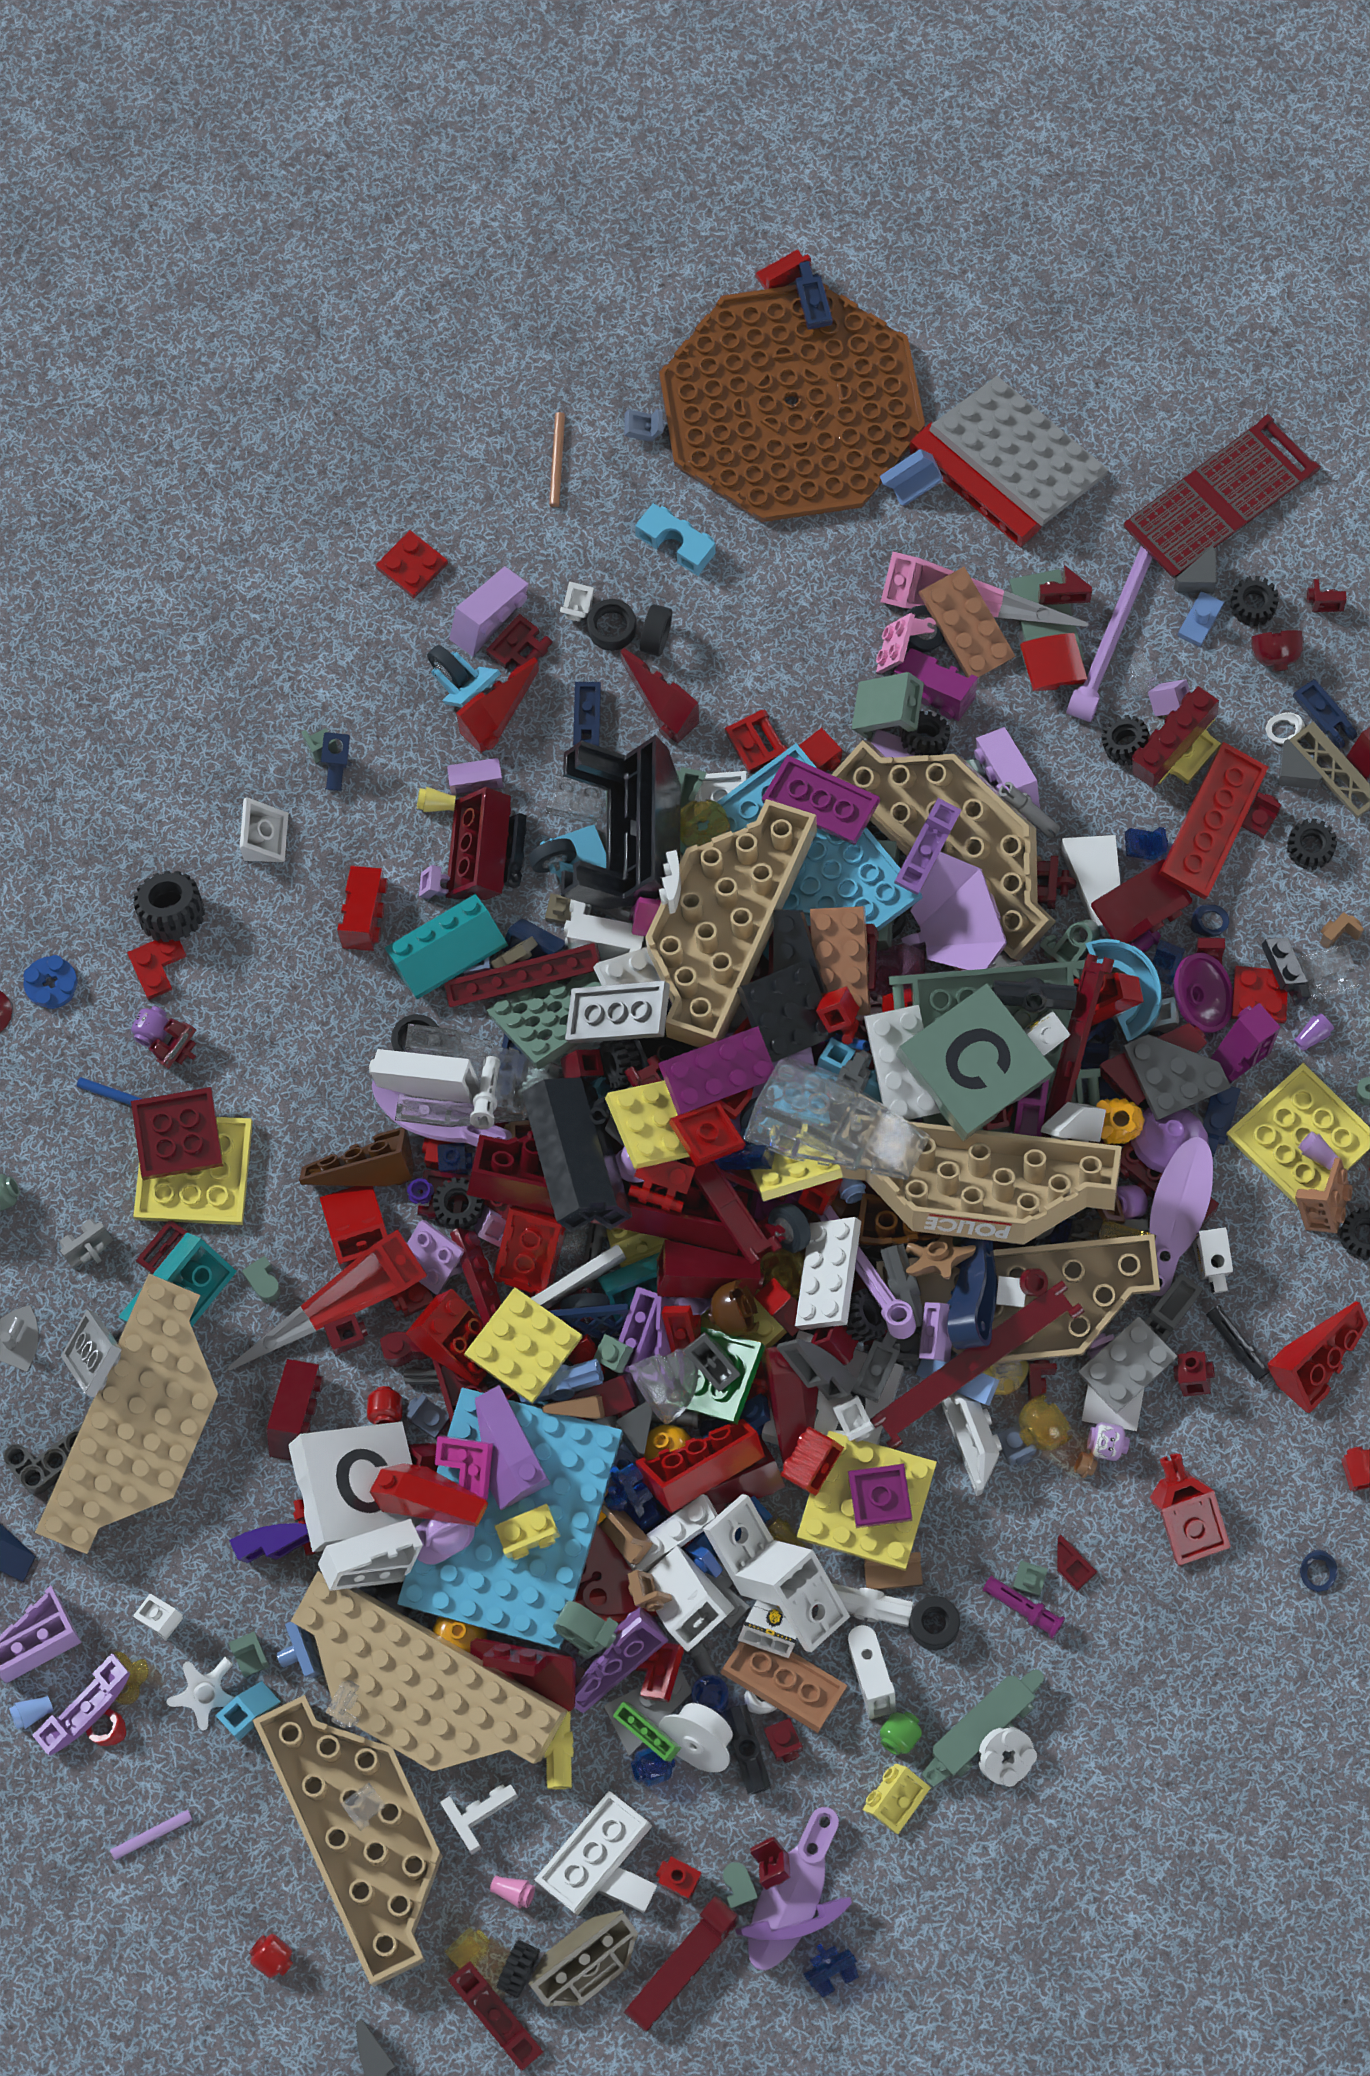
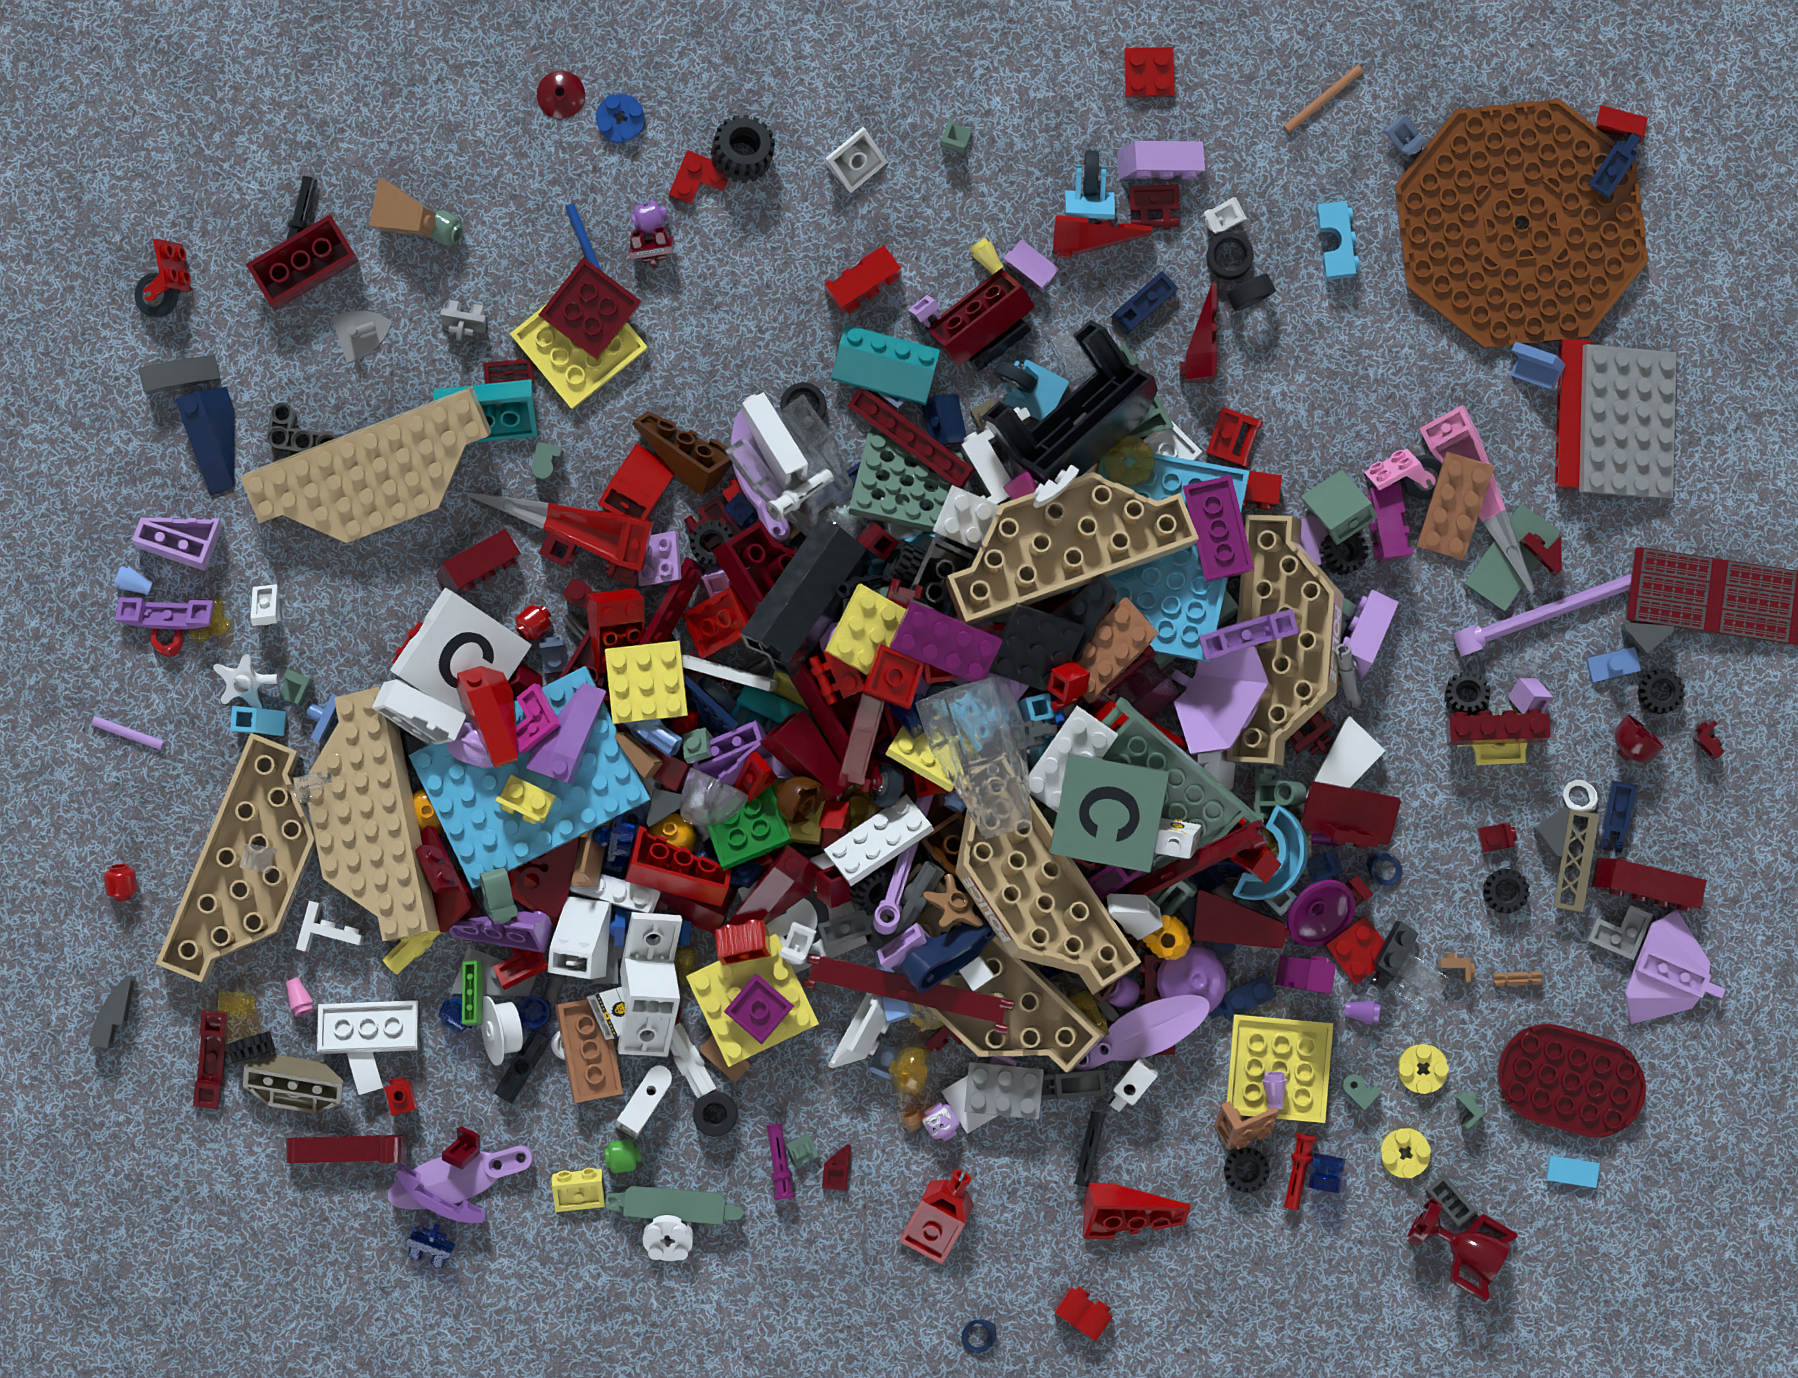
camera: 45 degrees right, 15 degrees up
(91, 1353) = (387, 400): light grey plate -> none
(269, 1540) = (377, 632): dark purple slope -> none
(335, 762) = (949, 162): dark blue bracket -> none
(415, 1186) = (697, 502): dark purple plate -> none
(519, 952) = (924, 417): dark tan plate -> none
(617, 1012) = (928, 535): light grey plate -> none
(644, 1592) = (560, 910): medium nougat bracket -> none
(712, 1361) = (748, 817): dark grey slope -> none
(738, 1880) = (434, 1135): sand green leg -> none
(784, 1741) = (550, 1084): dark red bracket -> none
(818, 1368) = (806, 893): dark grey slope -> none
(1033, 1282) = (995, 984): dark red tile -> none
(1047, 995) = (1197, 808): black piece -> none
(1053, 661) = (1481, 592): red slope -> none
(1145, 843) = (1401, 775): clear blue bracket -> none
(1172, 1075) = (1235, 946): dark grey plate -> none
(1194, 1373) = (1040, 1138): dark red brick -> none
(1213, 820) = (1460, 808): red plate -> none

